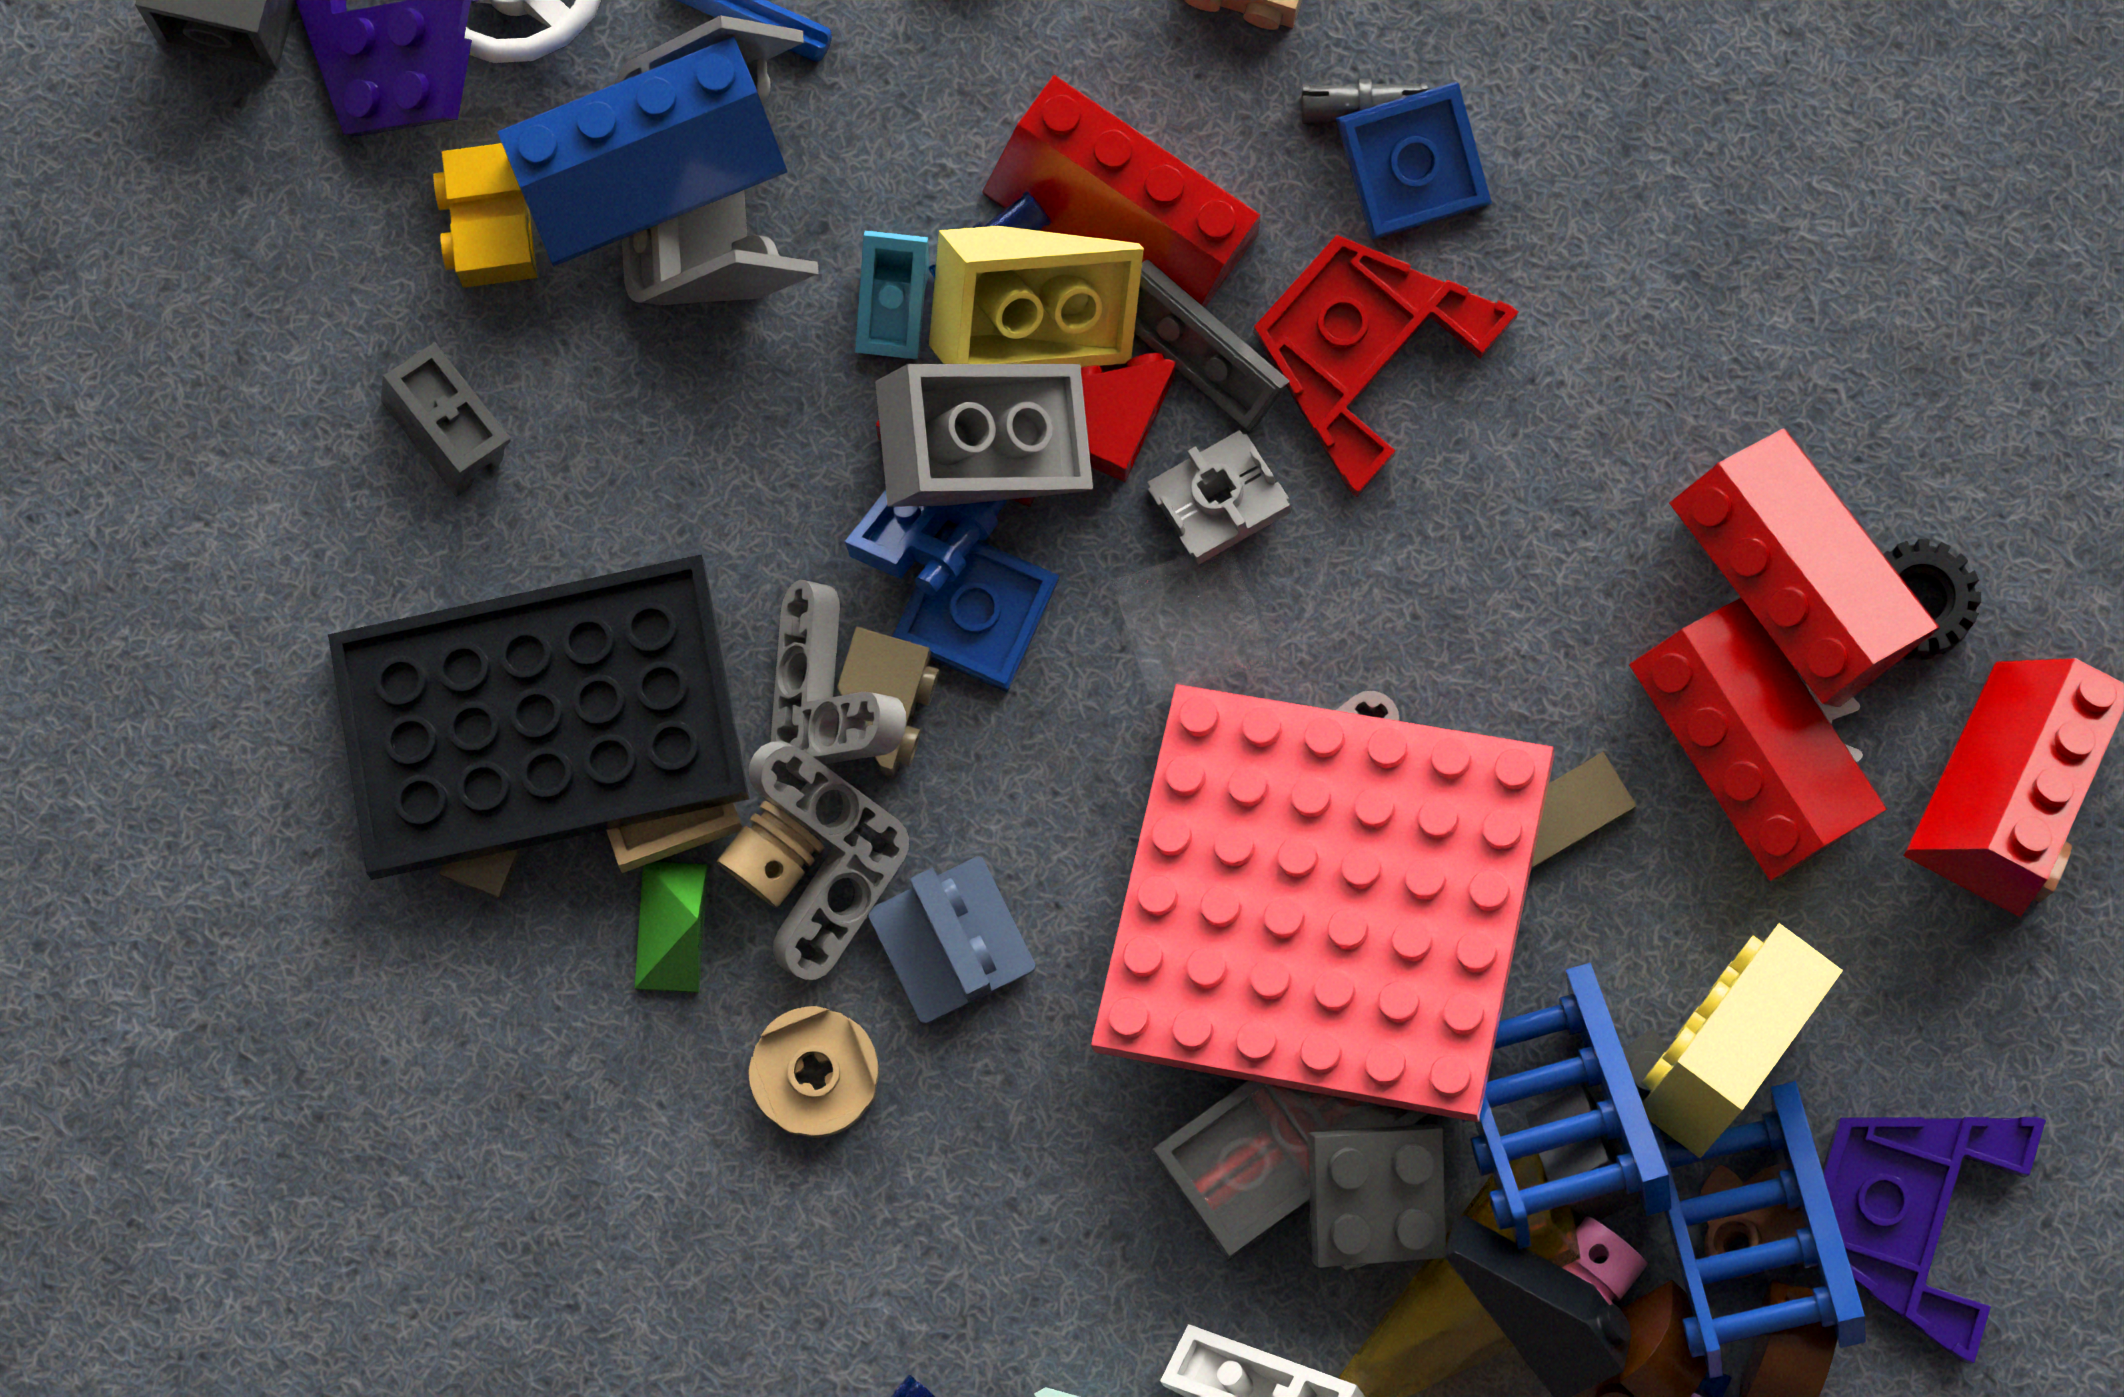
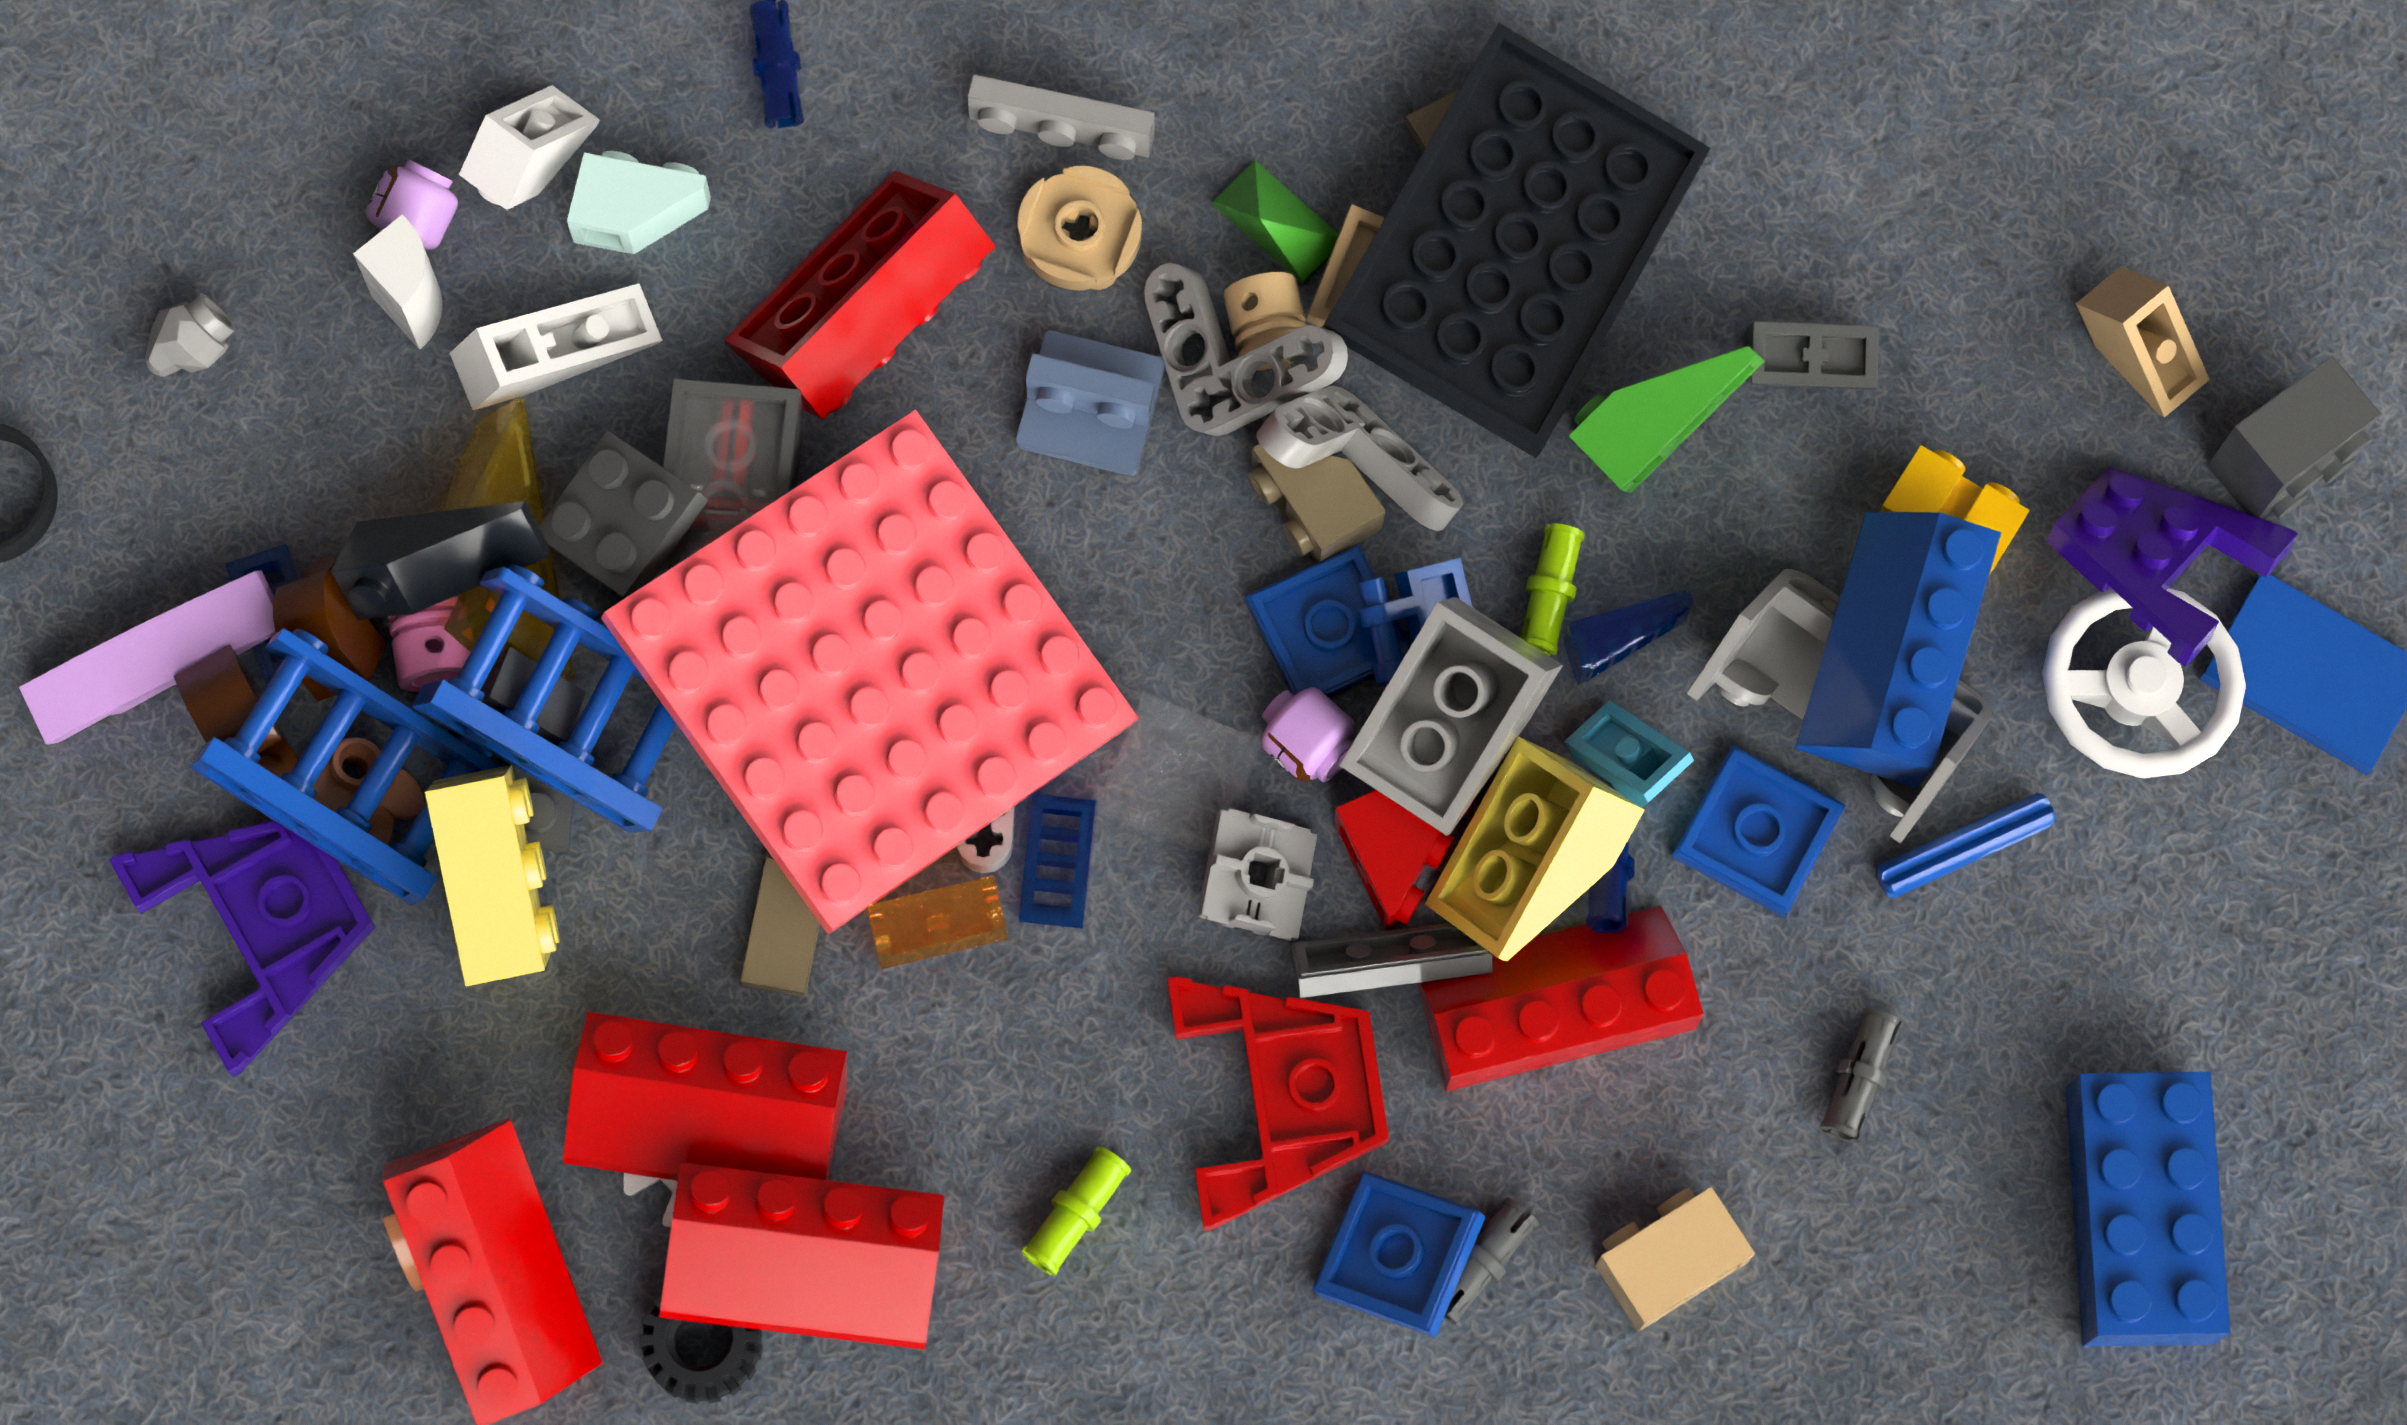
camera: 125 degrees right, 5 degrees down
(214, 187) = (2144, 338): none -> tan slope
(600, 489) = (1651, 419): none -> bright green slope
(736, 1163) = (1060, 117): none -> light grey plate
(803, 465) = (1551, 587): none -> lime pin
(805, 386) = (1612, 636): none -> clear blue slope
(862, 167) = (1758, 831): none -> blue tile
(1018, 1196) = (862, 292): none -> red slope
(1080, 544) = (1307, 734): none -> lavender head
(1294, 668) = (1037, 831): none -> clear blue slope
(1471, 683) = (937, 922): none -> clear orange hinge
(1586, 415) = (1076, 1211): none -> lime pin

